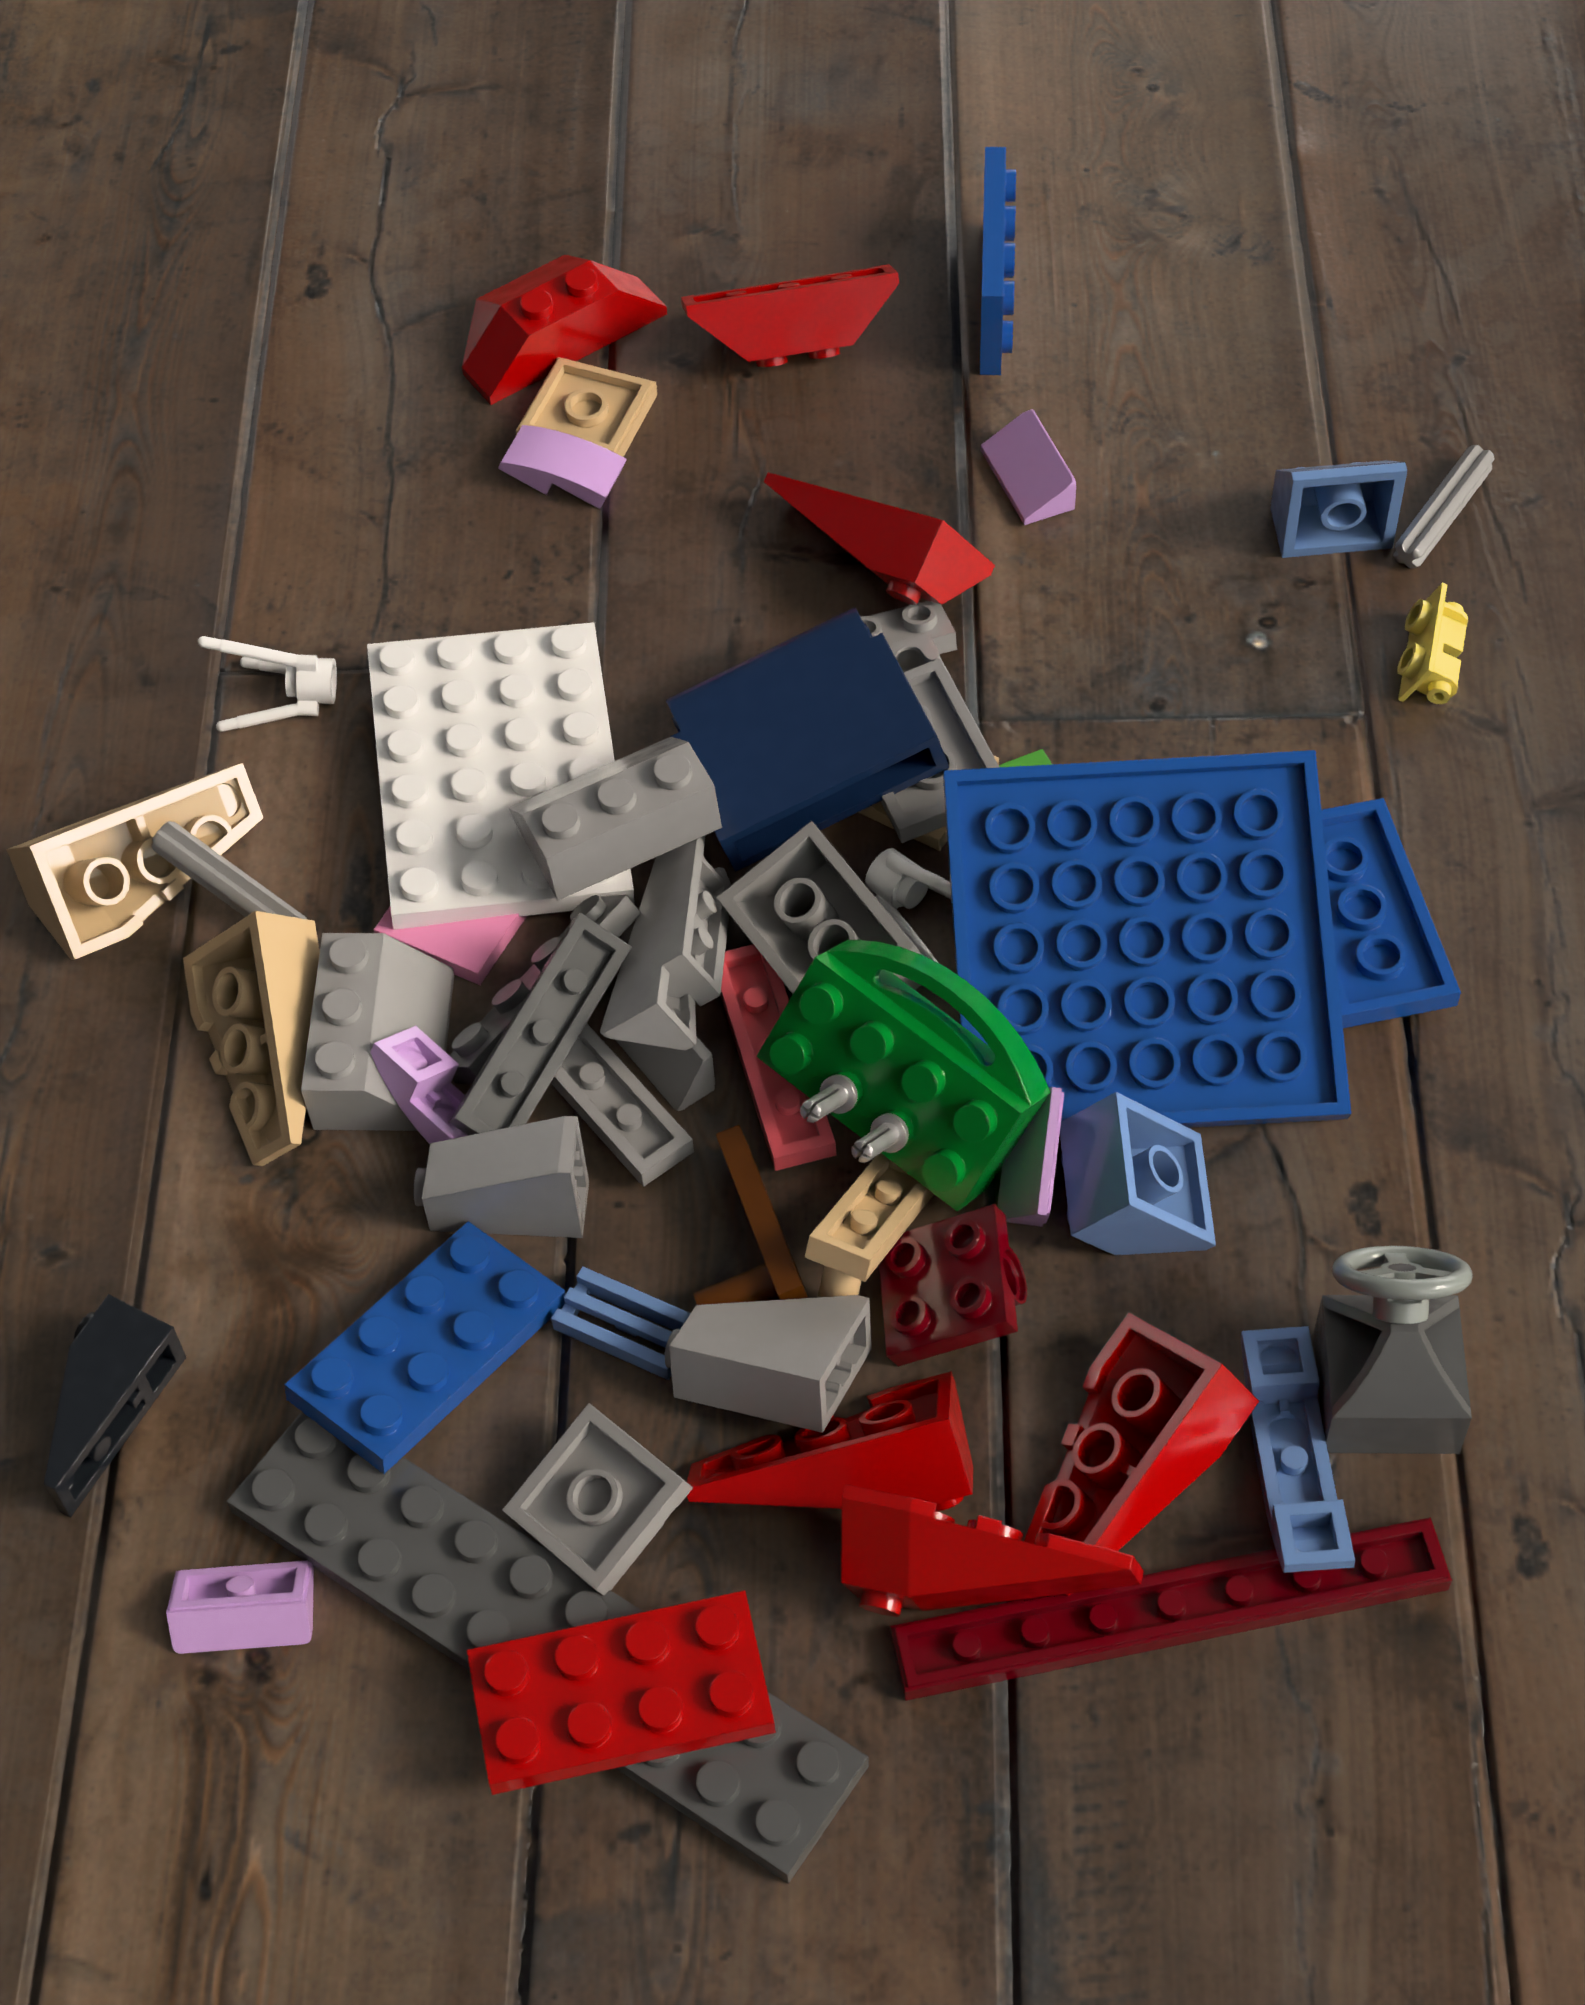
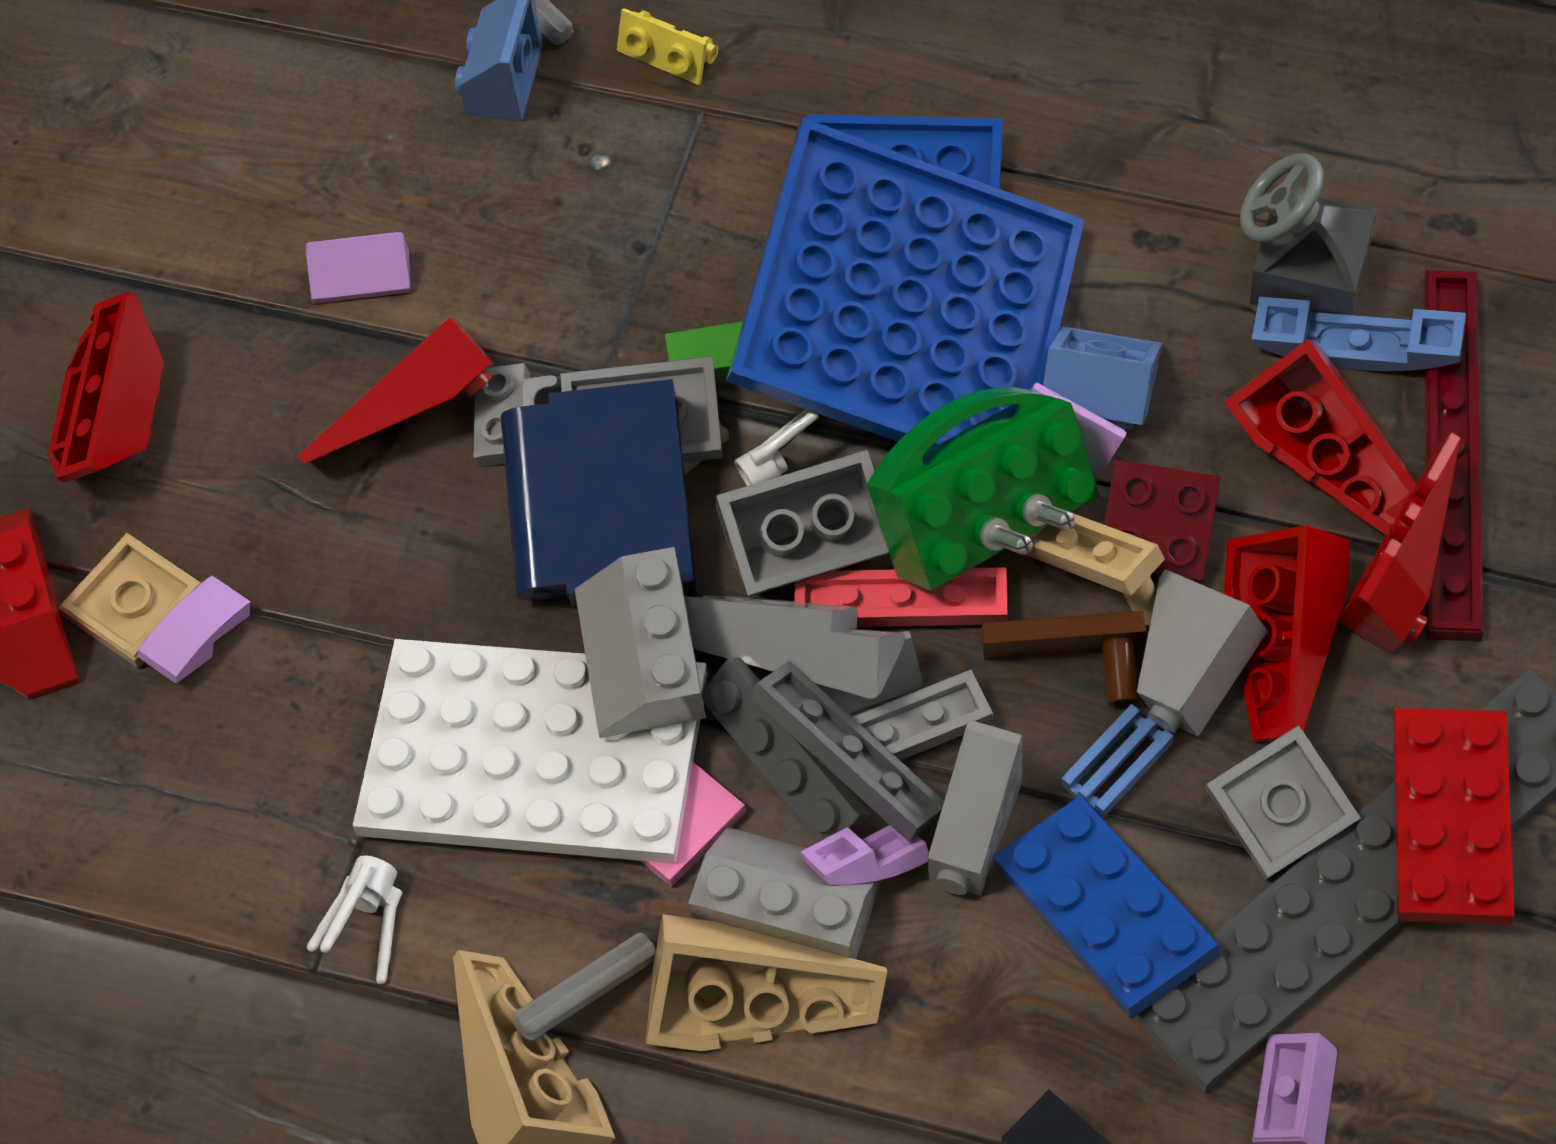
camera: 70 degrees left, 5 degrees up
(997, 261) = (127, 224): blue plate -> none

